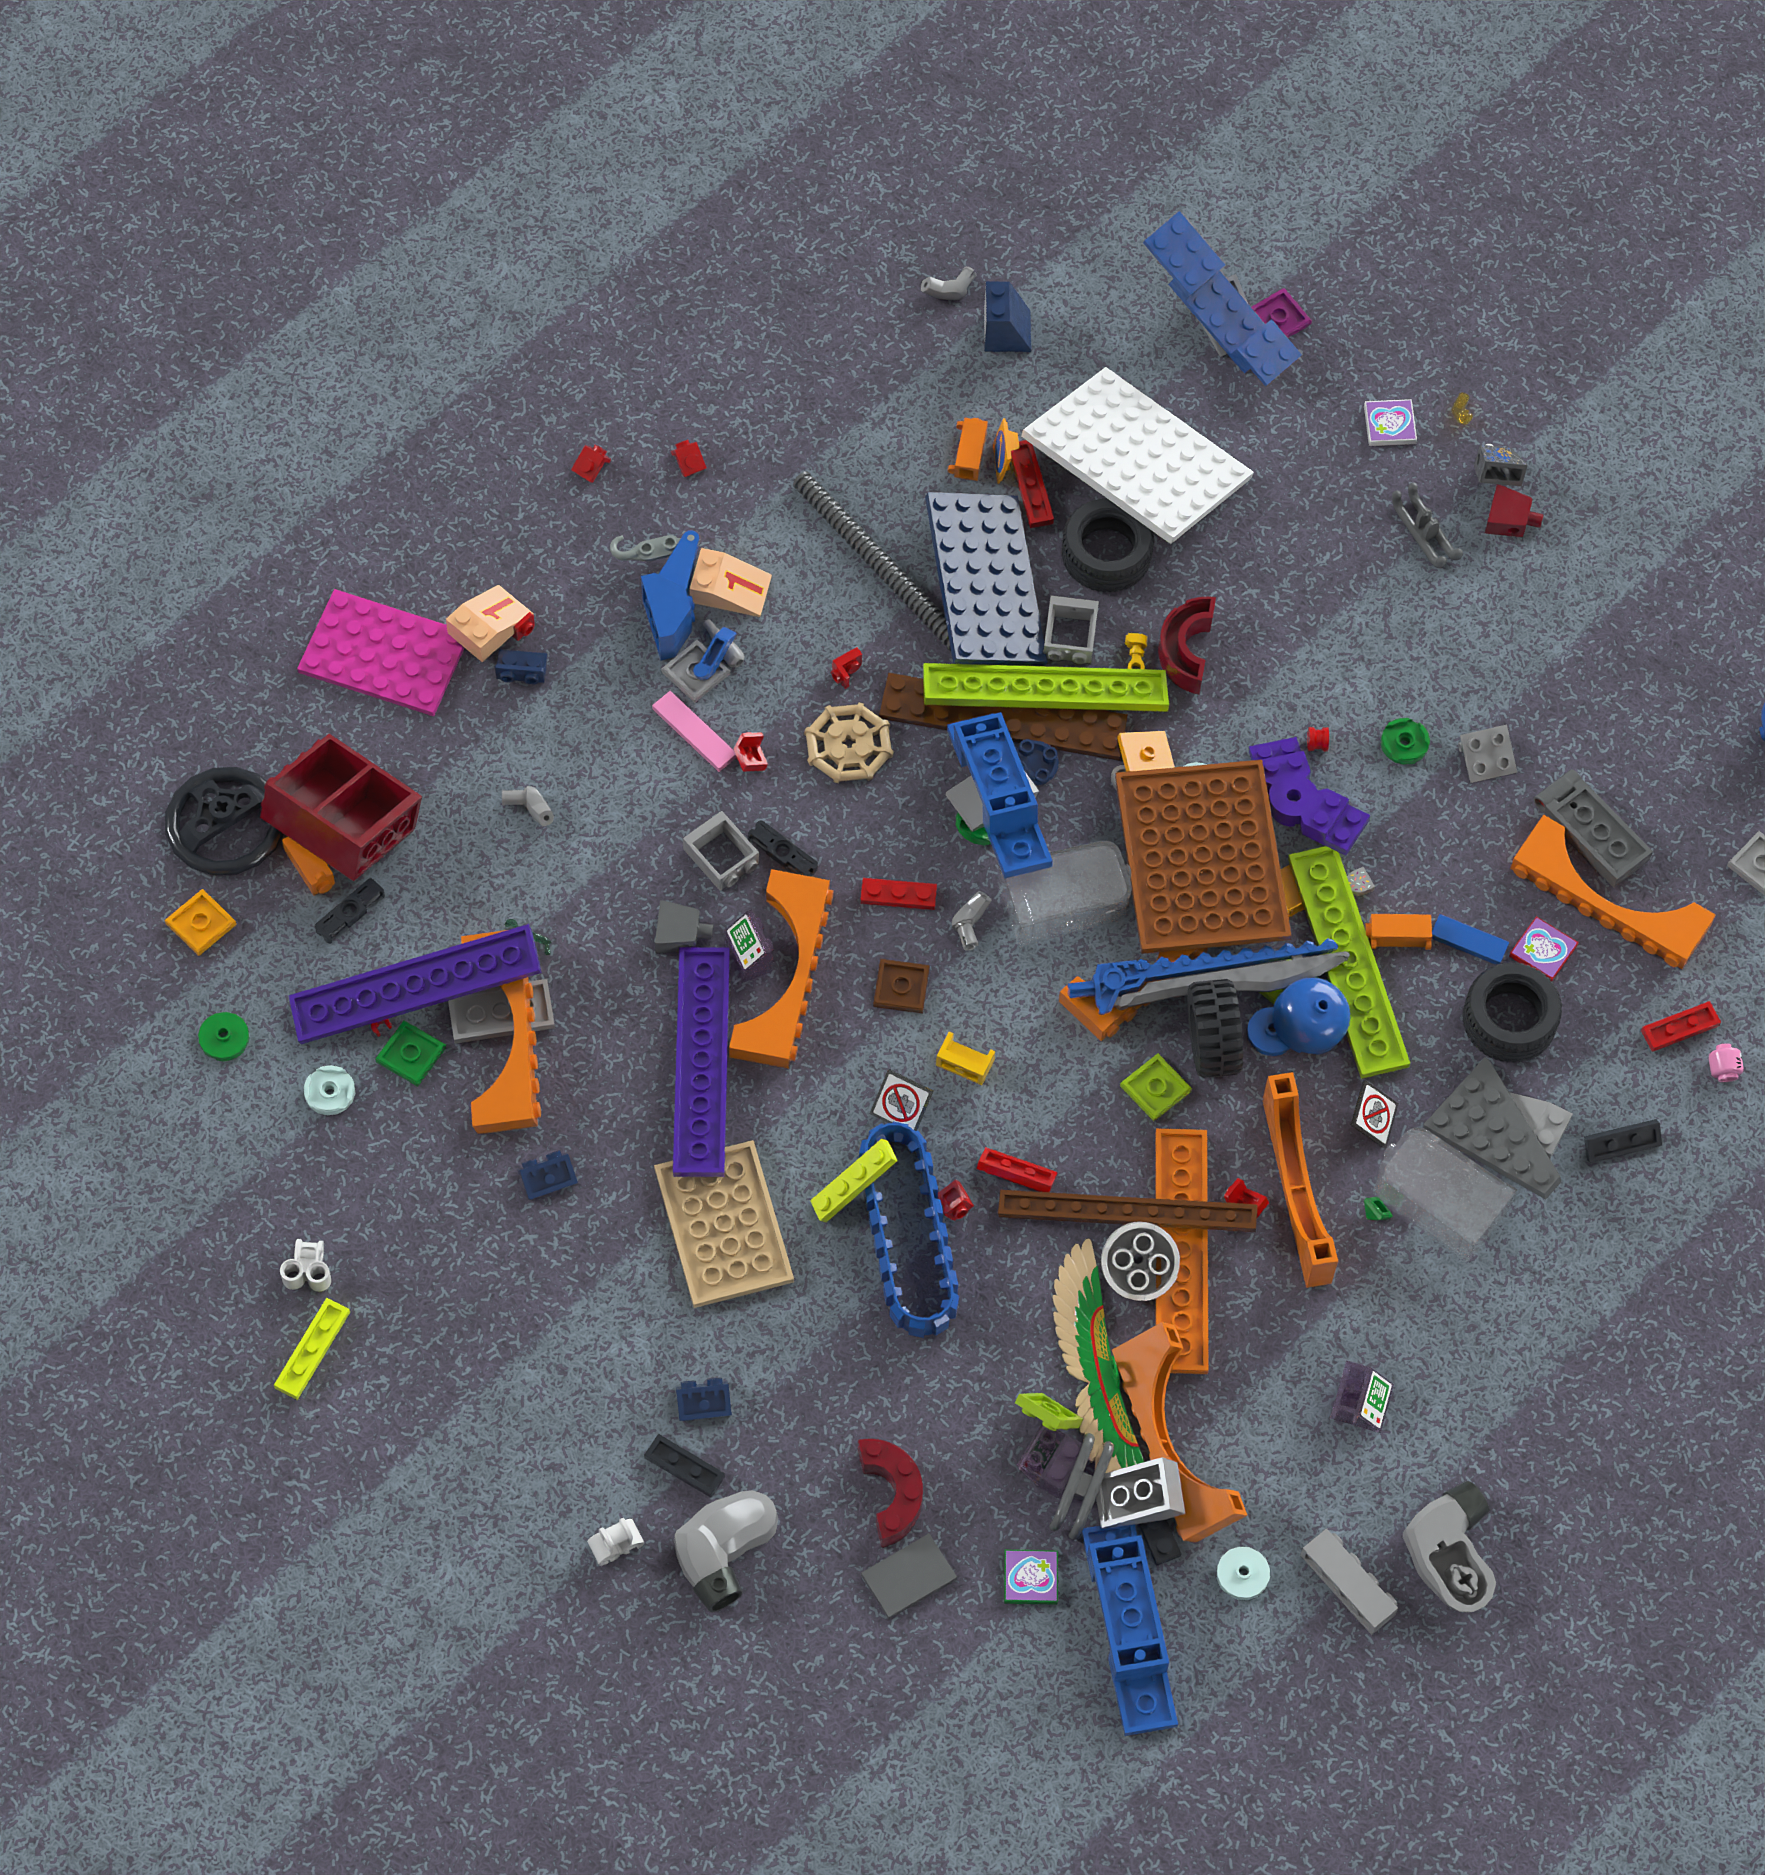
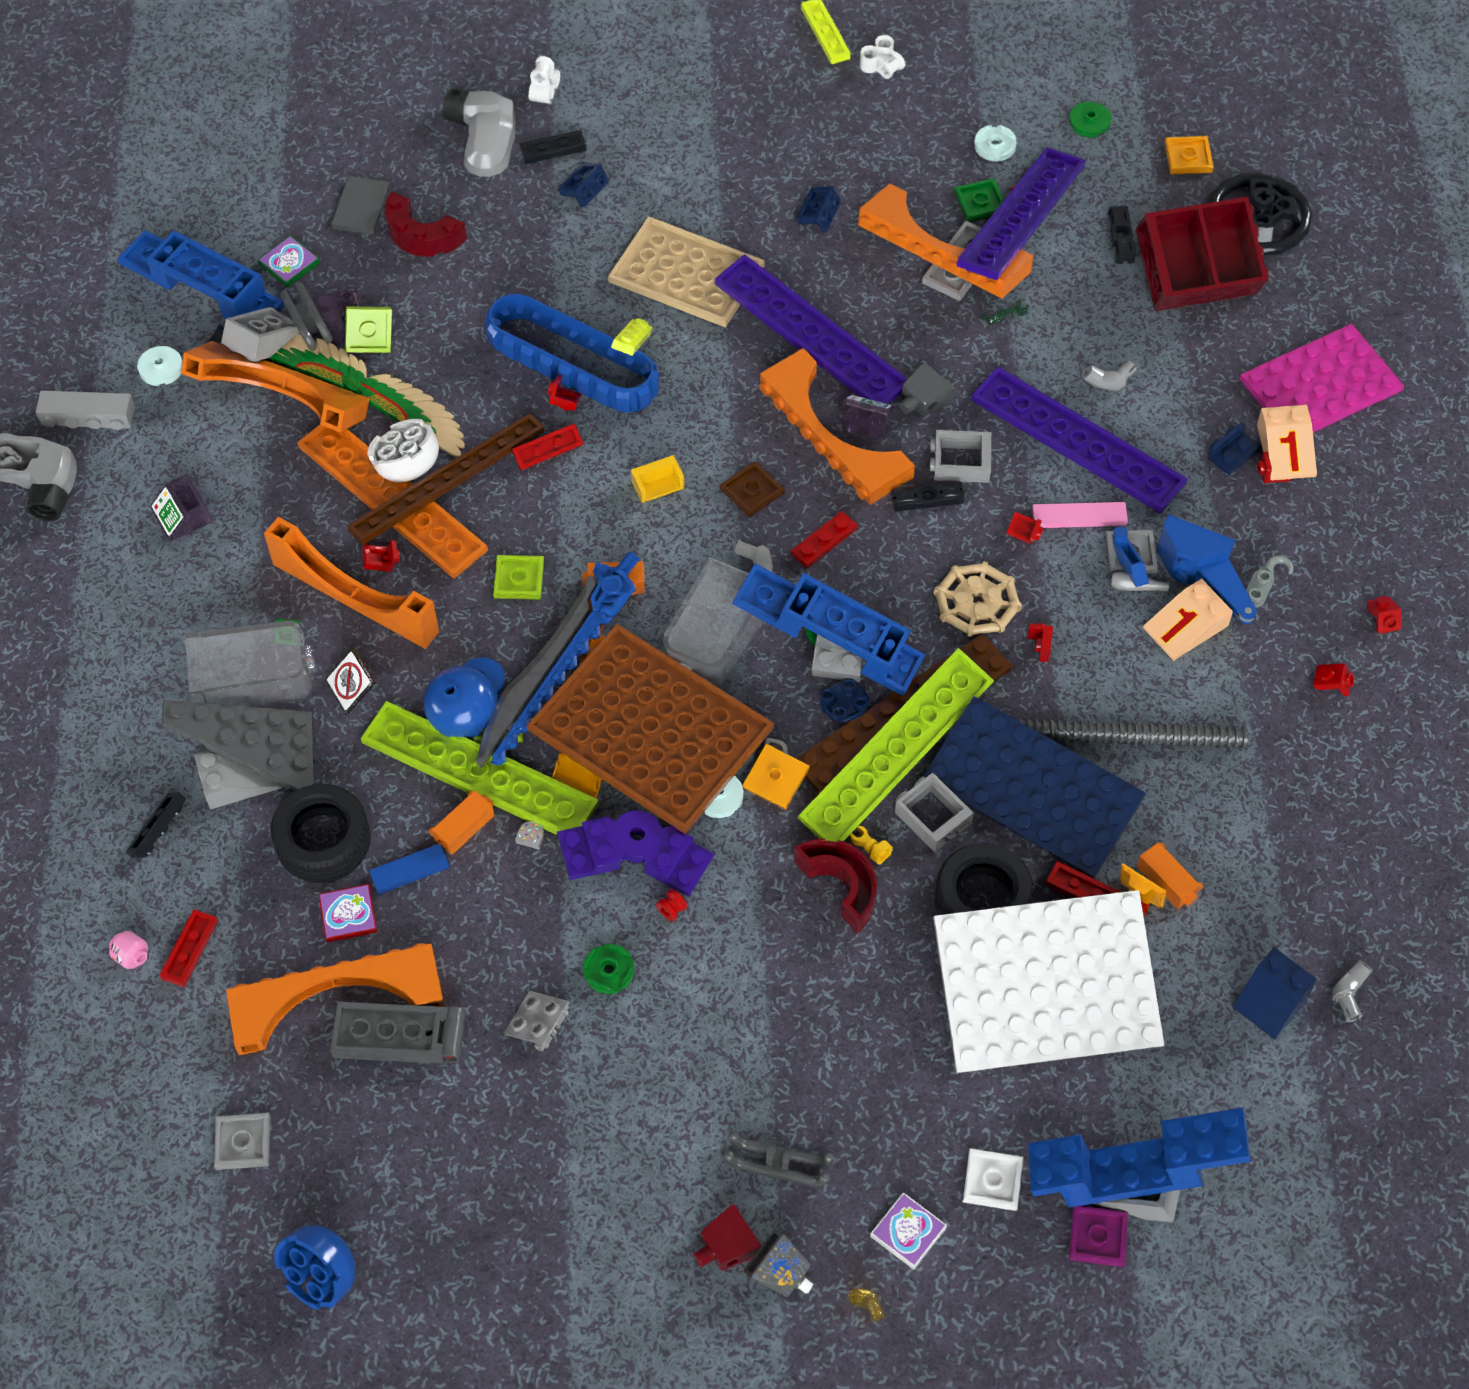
camera: 135 degrees right, 5 degrees down
(618, 784) = (1079, 440): none -> dark purple plate
(901, 1100) = (664, 418): piece -> none
(1215, 1028) = (508, 613): black tyre -> none
(1304, 401) = (993, 1179): none -> white tile

